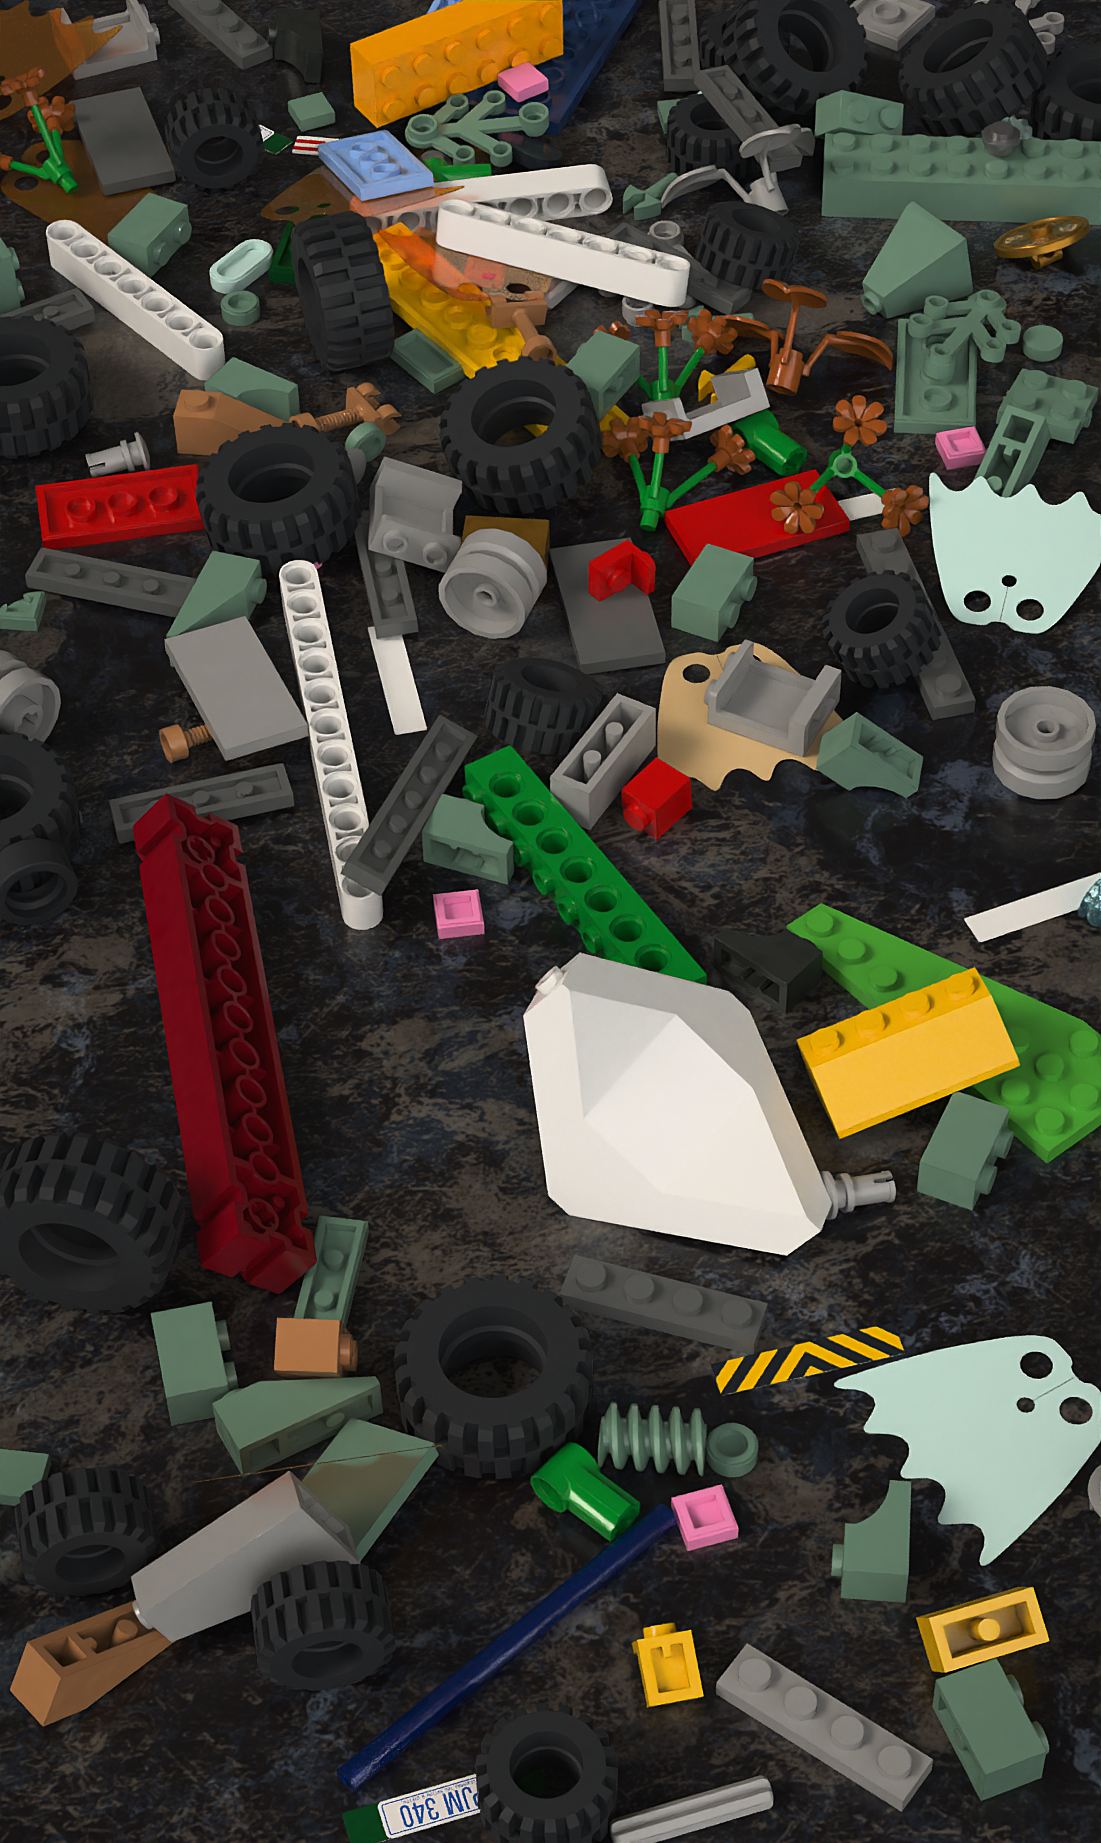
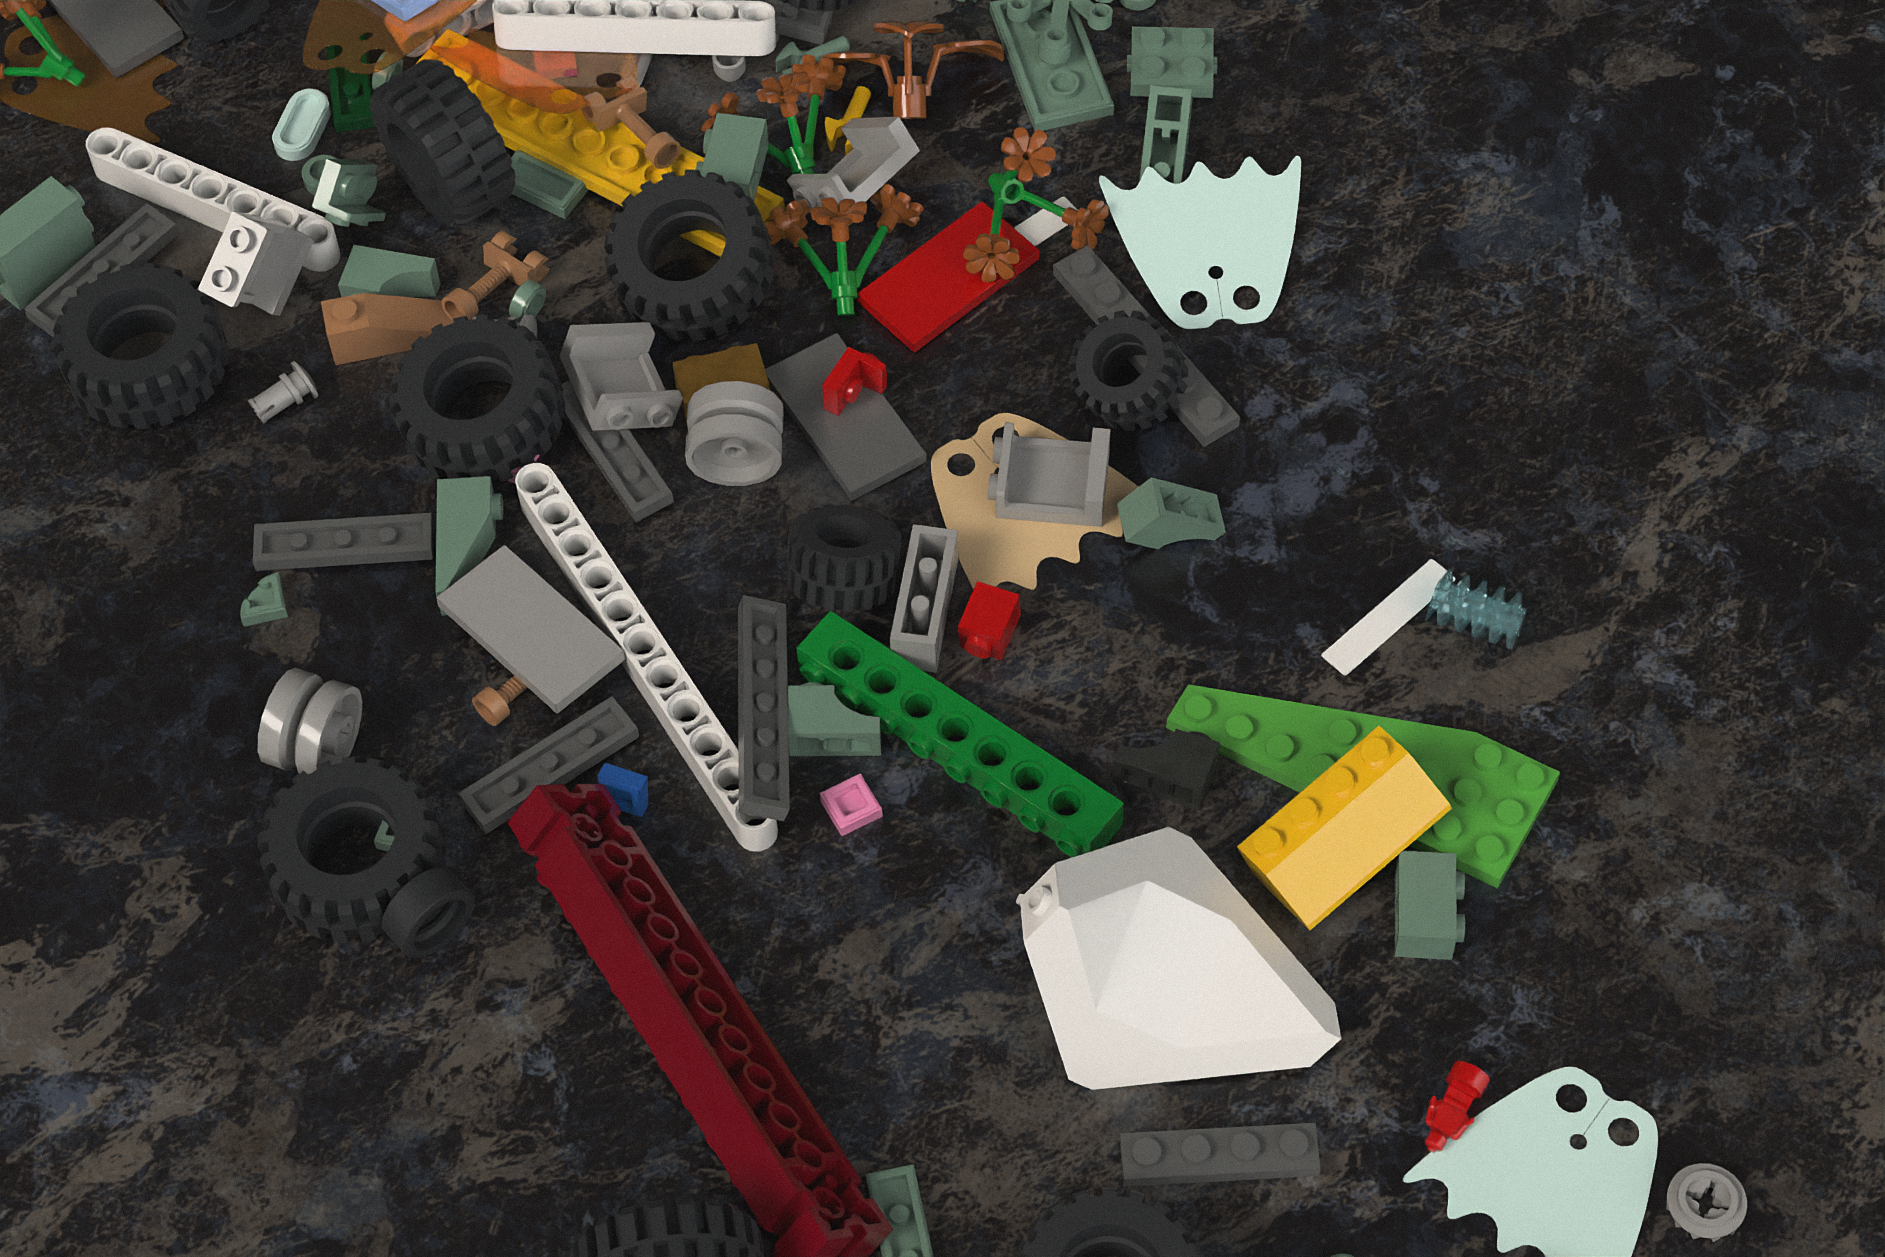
camera: 20 degrees left, 10 degrees up
(119, 507) = (308, 448): red tile -> none
(138, 343) = (256, 263): none -> light grey panel
(151, 233) = (193, 115): sand green brick -> none
(248, 315) = (345, 191): none -> sand green bracket
(257, 839) = (626, 788): none -> blue tile
(398, 683) = (677, 565): white sticker -> none
(713, 592) = (944, 373): sand green brick -> none
(770, 444) = (930, 186): green piece -> none
(807, 1359) = (1361, 1167): sticker -> none
(857, 1190) = (1344, 980): light grey pin -> none
(904, 1339) = (1448, 1116): none -> red piece
(960, 447) = (1108, 133): bright pink tile -> none
(1043, 742) = (1326, 447): light grey wheel -> none

